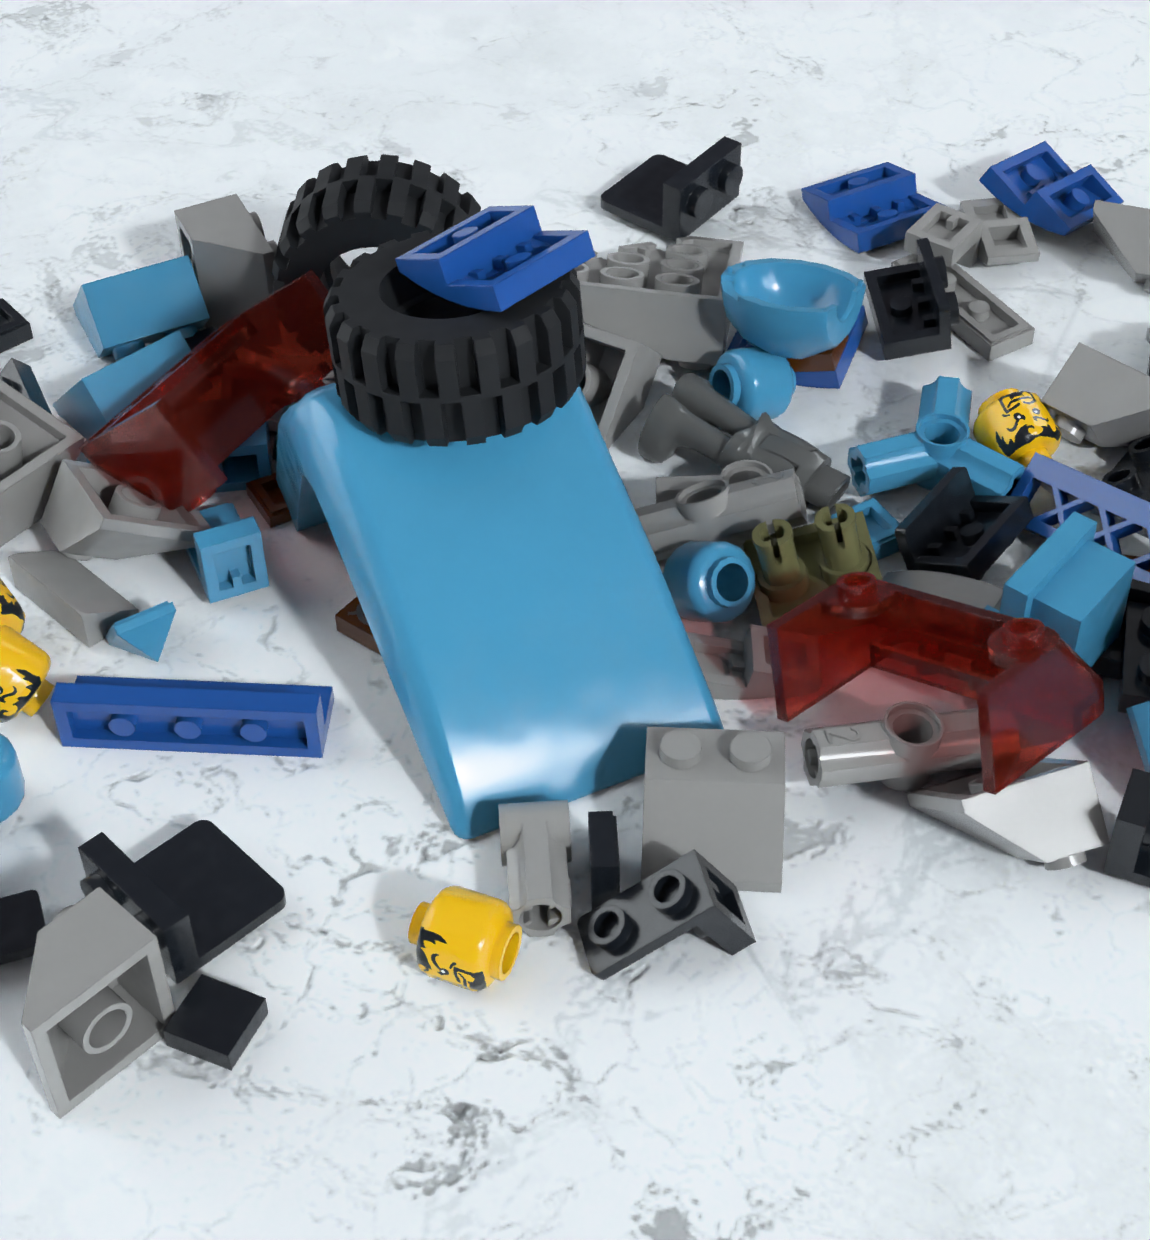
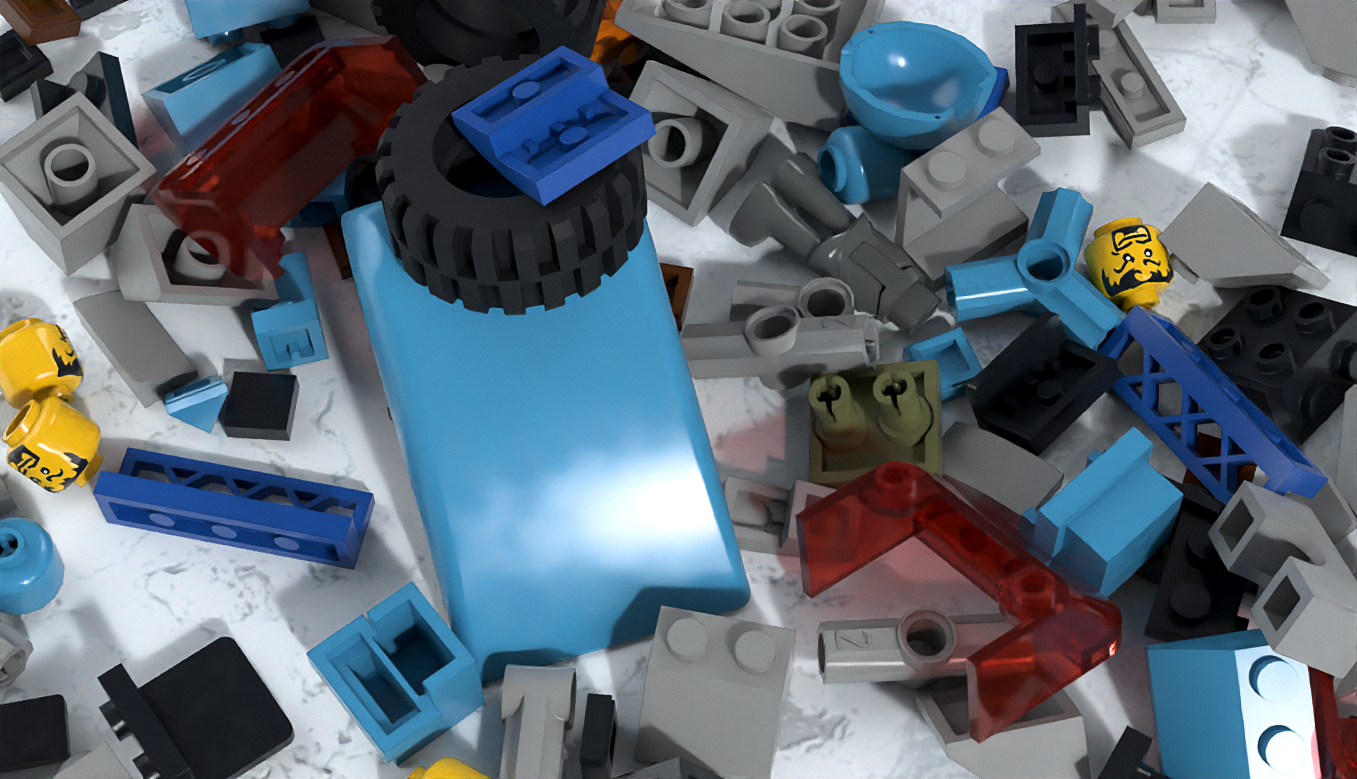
camera: 10 degrees right, 15 degrees up
(208, 630) = (261, 406): none -> black tile
(393, 823) = (400, 674): none -> dark azure plate
(710, 580) = (764, 420): dark azure head -> none
(841, 381) = (952, 197): none -> light grey panel

